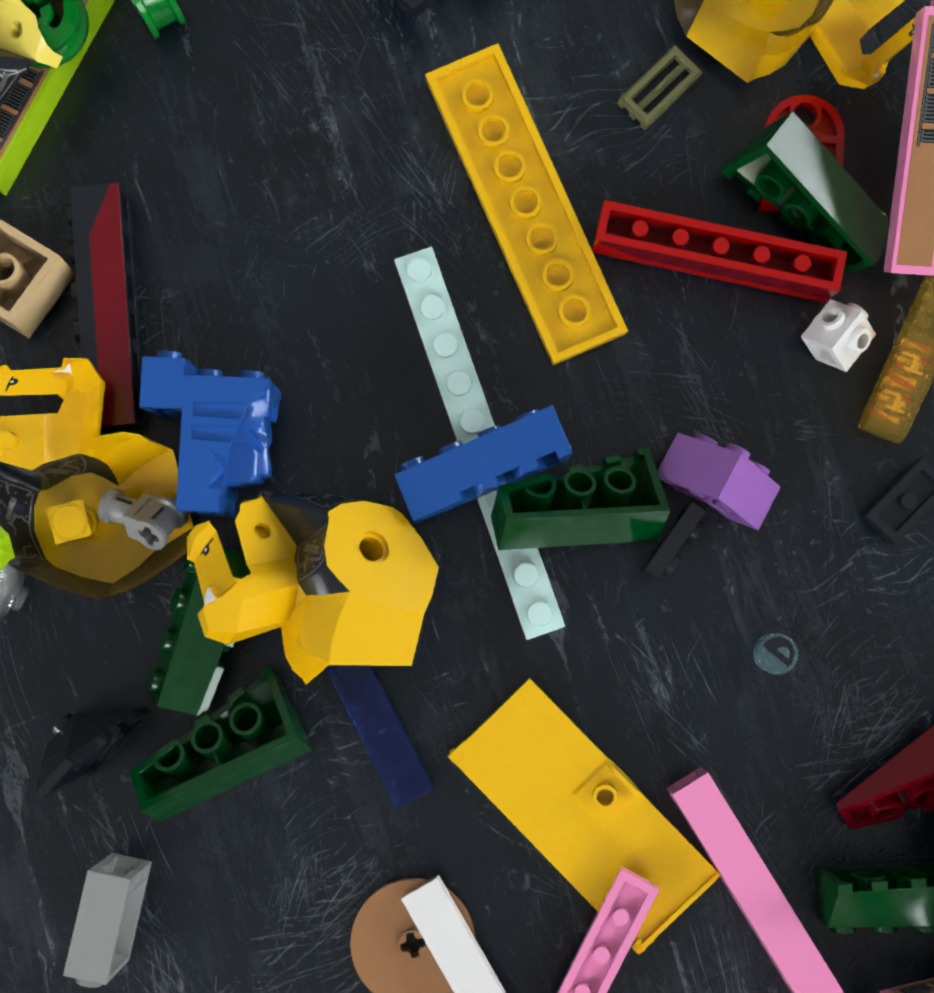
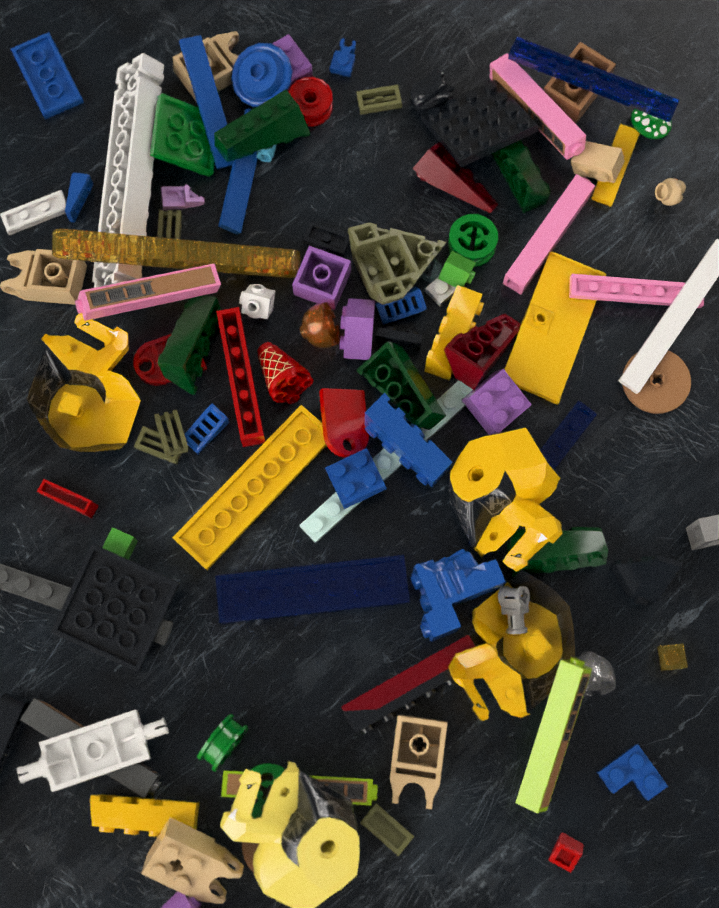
camera: 115 degrees left, 10 degrees down
(223, 750) = (605, 507): dark green wedge -> none
(321, 224) = (312, 589): none -> clear blue plate
(464, 361) = (355, 478): none -> blue plate
(489, 648) = (496, 402): none -> medium lavender brick
(580, 385) = (343, 420): none -> red tile
(592, 658) = (478, 350): none -> dark red wedge
(645, 638) = (459, 318): none -> yellow wedge
(656, 198) = (199, 424): none -> blue slope
(693, 320) = (282, 374): none -> red cone
(700, 112) = (167, 418): none -> olive tile
(716, 569) = (411, 310): none -> blue slope
(731, 653) = (440, 291): none -> white plate
(750, 418) = (320, 327): none -> clear orange cylinder
(751, 695) = (457, 270): none -> bright green brick
(814, 724) = (485, 238): none -> green wheel
(819, 589) = (390, 259): none -> olive wedge
(837, 458) = (321, 277): none -> medium lavender brick

